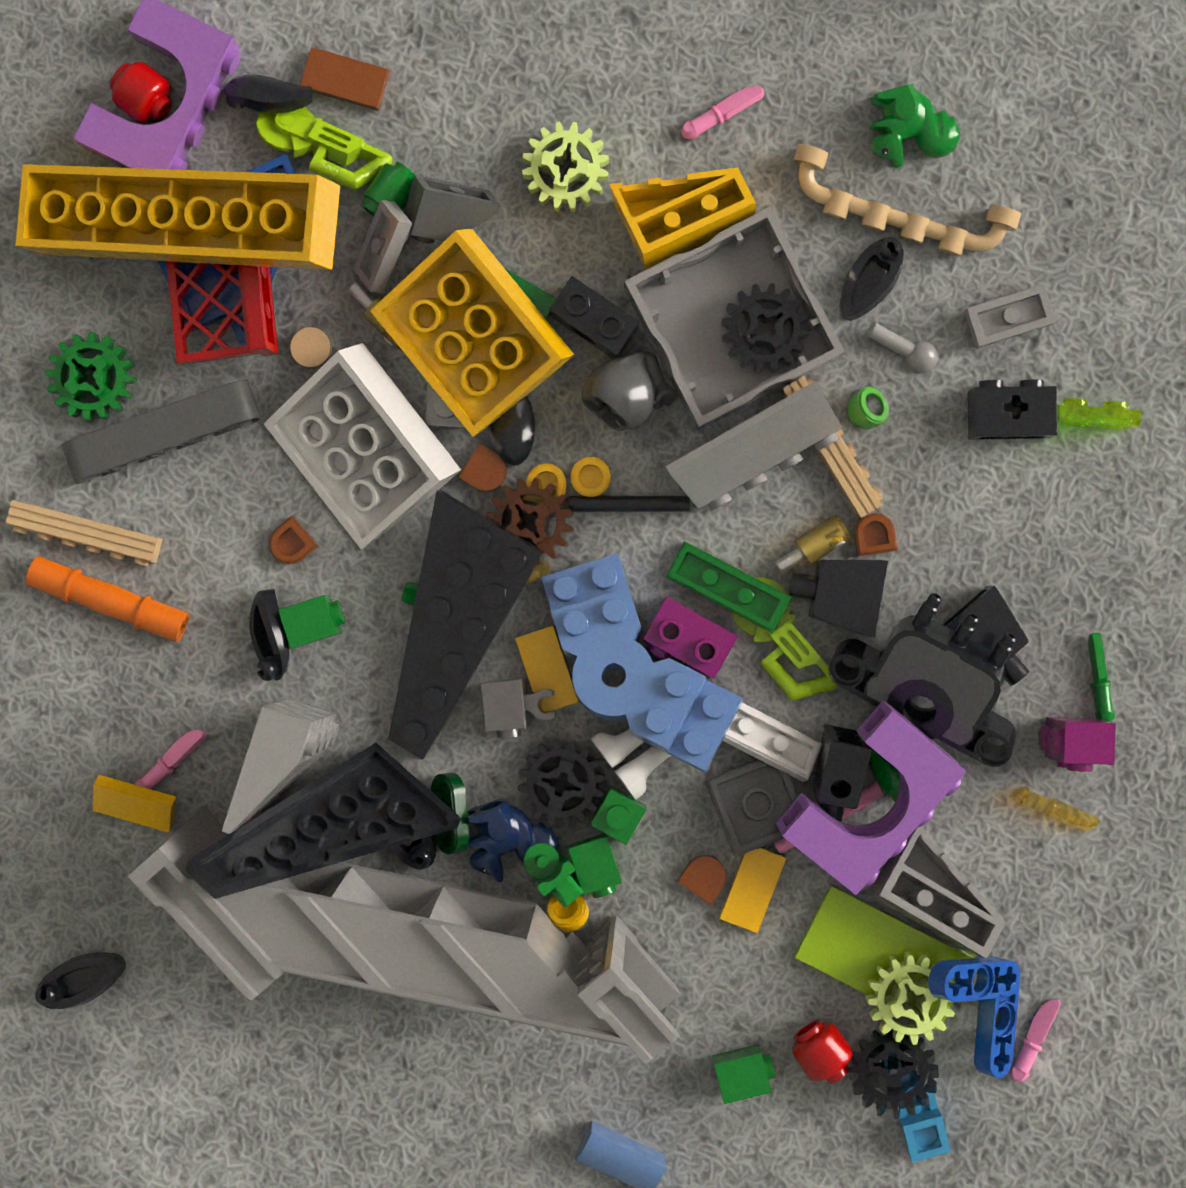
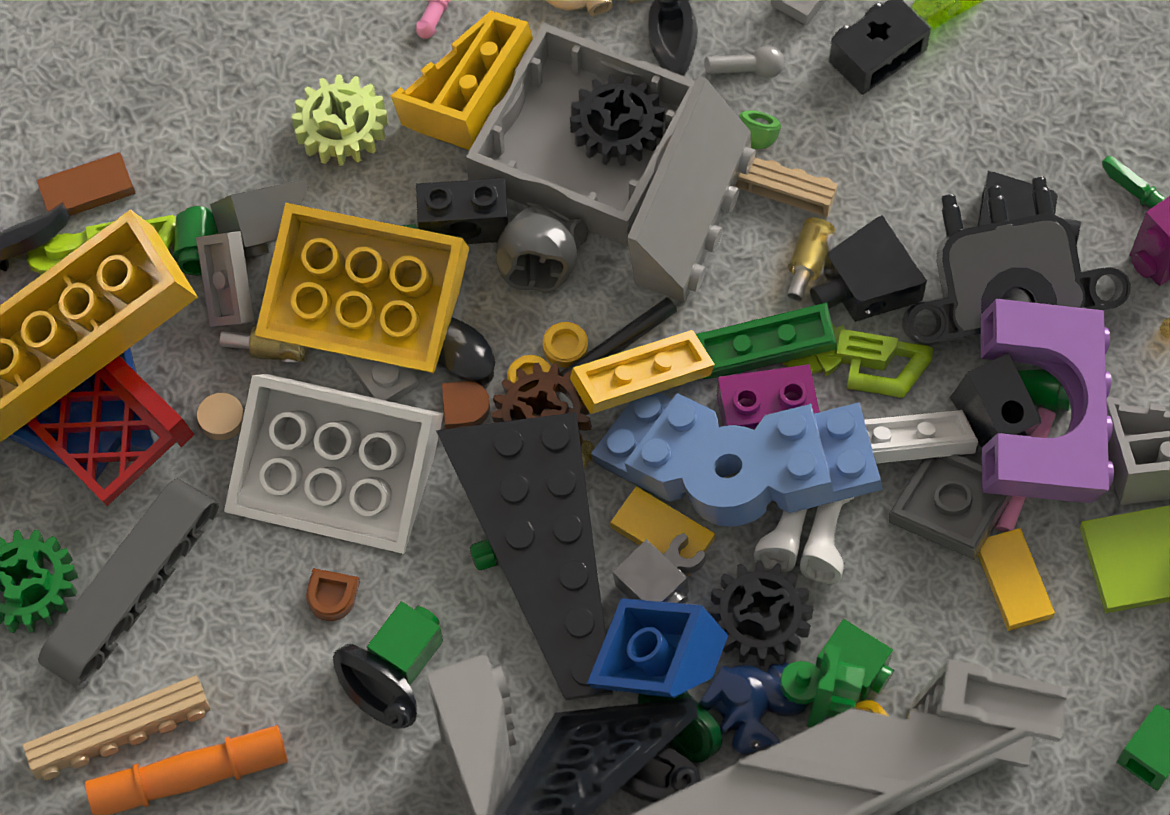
camera: 35 degrees left, 25 degrees down
(460, 768) = (658, 648): none -> blue slope
(617, 550) = (641, 371): none -> yellow plate
(618, 815) = (836, 595): green brick -> none
(704, 877) = (963, 603): dark orange tile -> none
(874, 535) = (851, 213): dark orange tile -> none

